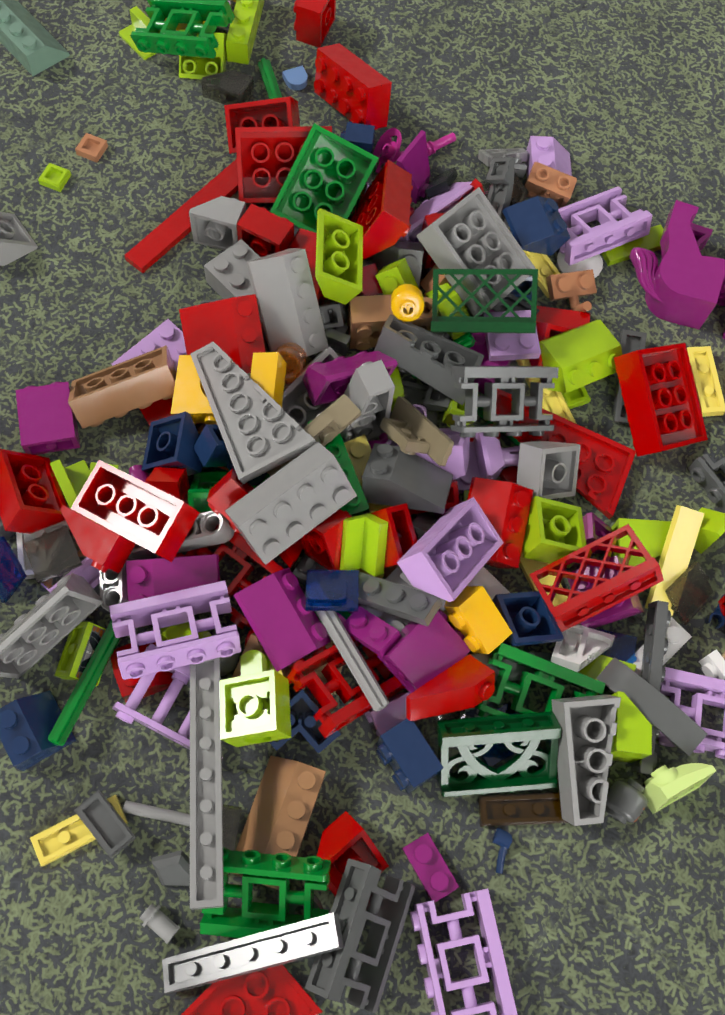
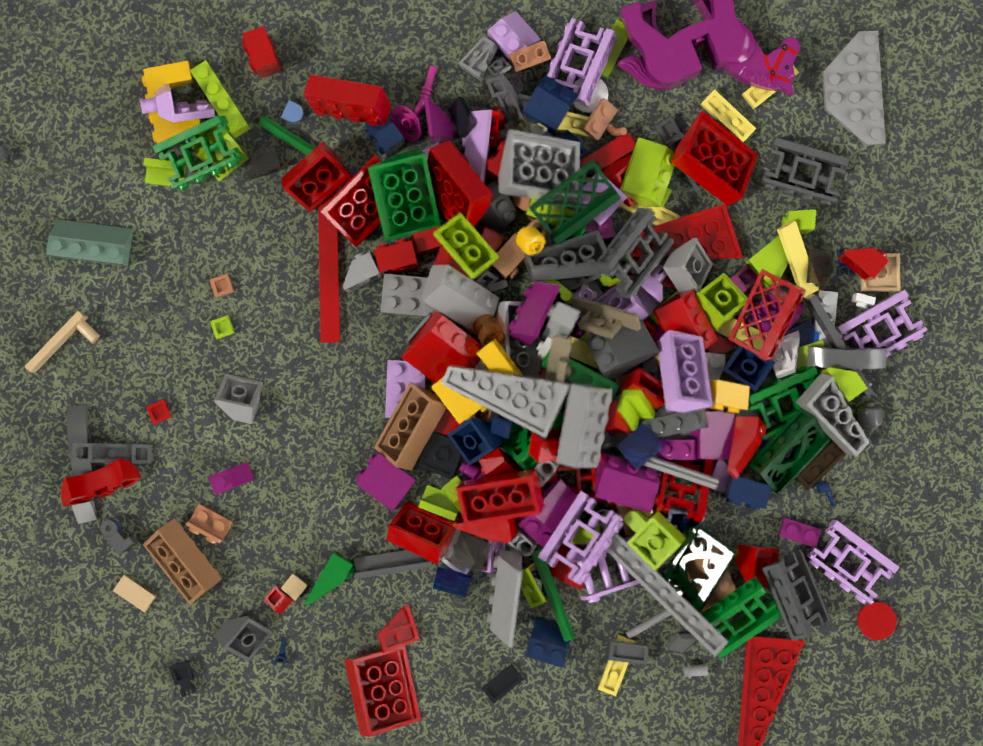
camera: 30 degrees left, 20 degrees up
(124, 441) = (440, 456): none -> black tile
(251, 772) = (721, 562): none -> fence
(252, 953) = (754, 647): plate -> none
(395, 275) = (506, 223): lime slope -> none
(513, 581) = (720, 346): none -> red tile
(674, 783) = (886, 391): yellowish green slope -> none

